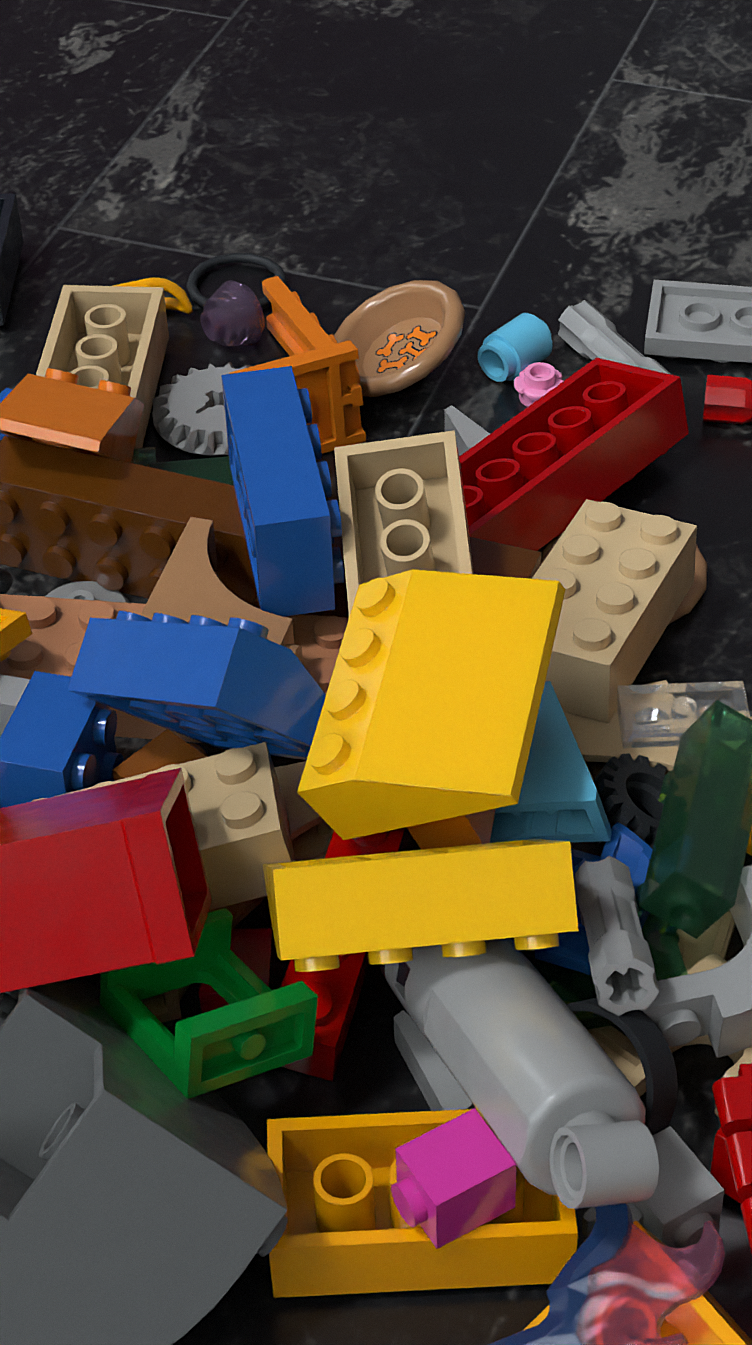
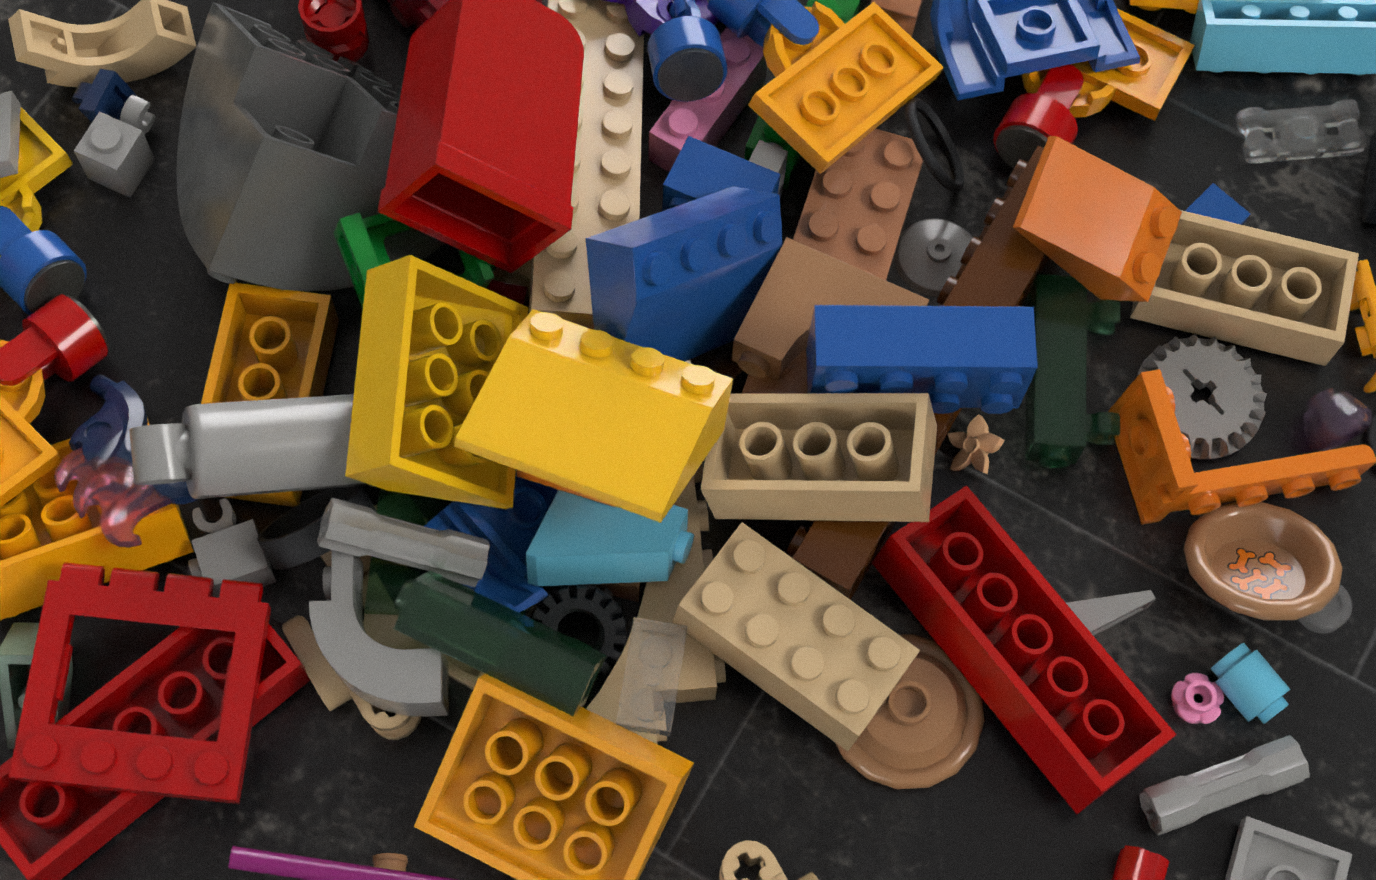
camera: 95 degrees right, 25 degrees up
(454, 1179) = (223, 376): dark pink brick -> none

